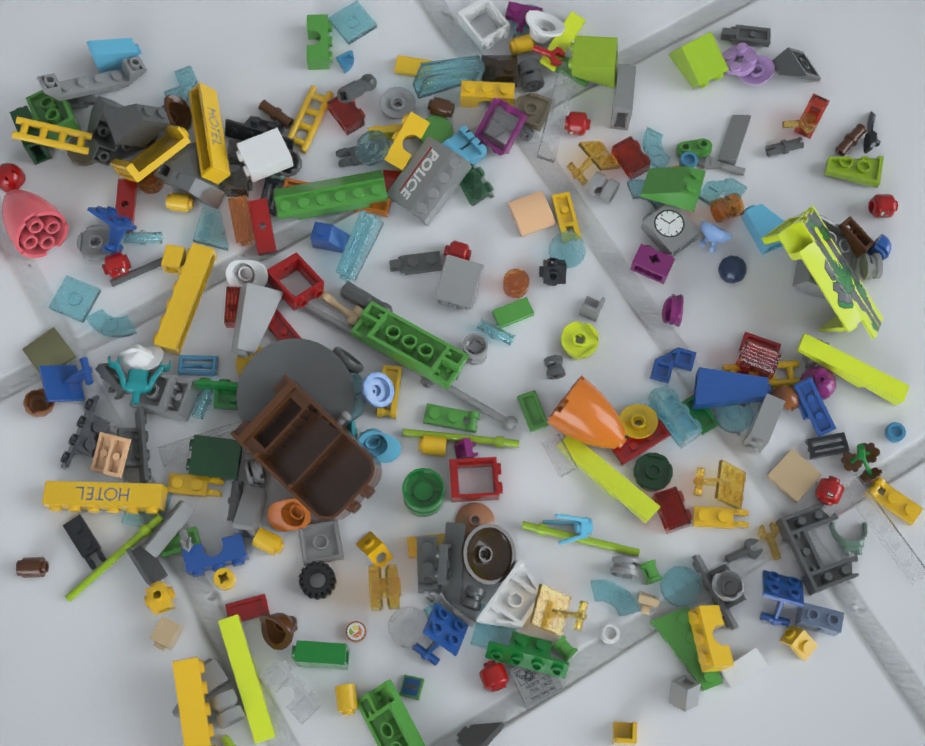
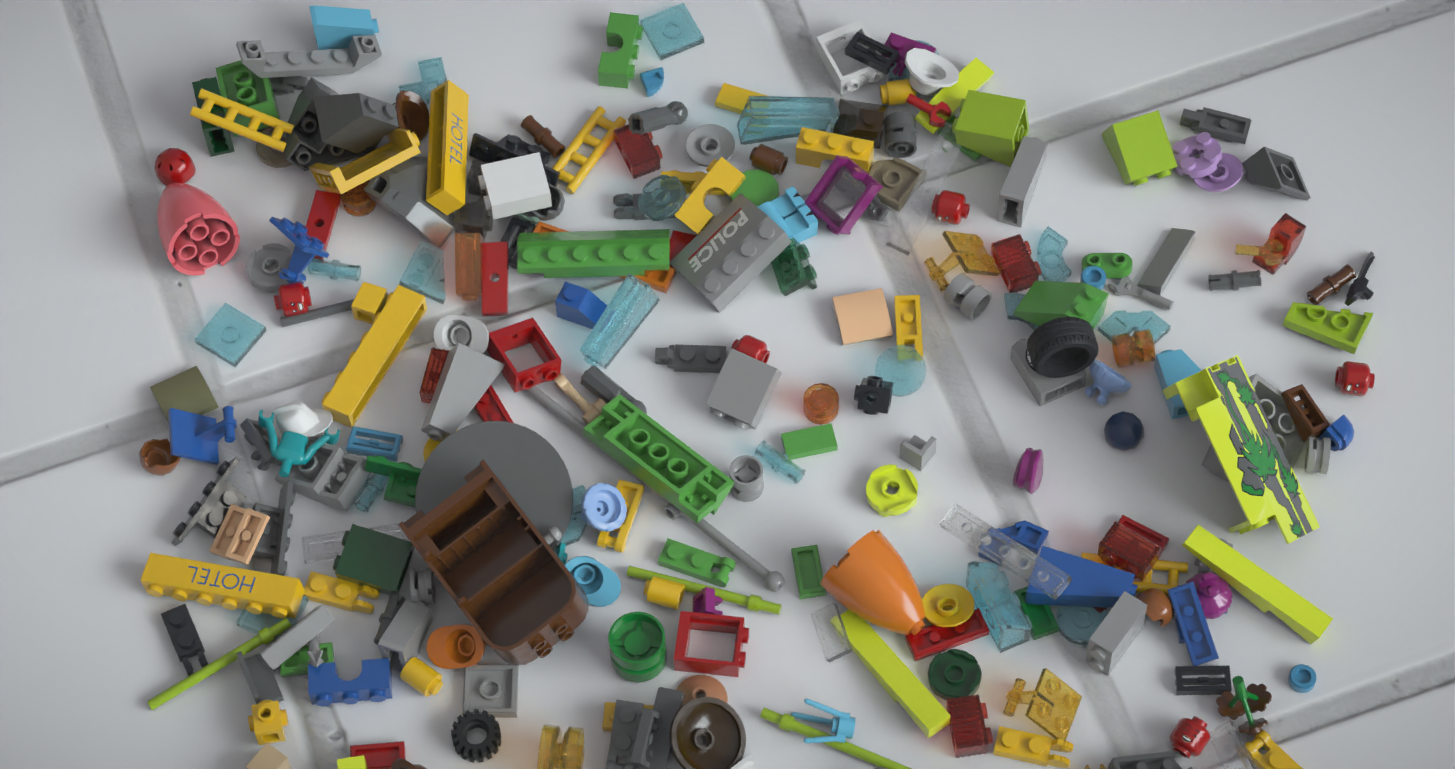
camera: 15 degrees right, 10 degrees down
(32, 567) = (112, 658): reddish brown brick -> none
(110, 325) = (271, 376): clear light blue tile -> none
(179, 202) = (392, 231): yellow brick -> none
(227, 581) = (358, 720): yellow wheel -> none
(350, 361) = (575, 468): dark grey hair -> none
(372, 547) = (556, 705): yellow bracket -> none
(498, 21) = (869, 56): none -> black tile
(554, 367) = (849, 519): dark grey wheel -> none
(643, 263) = (1013, 406): magenta brick -> none
(673, 375) = (1005, 551): none -> clear tile
(684, 217) = (1062, 347): none -> black tyre
(794, 475) = (1147, 711): tan tile -> none

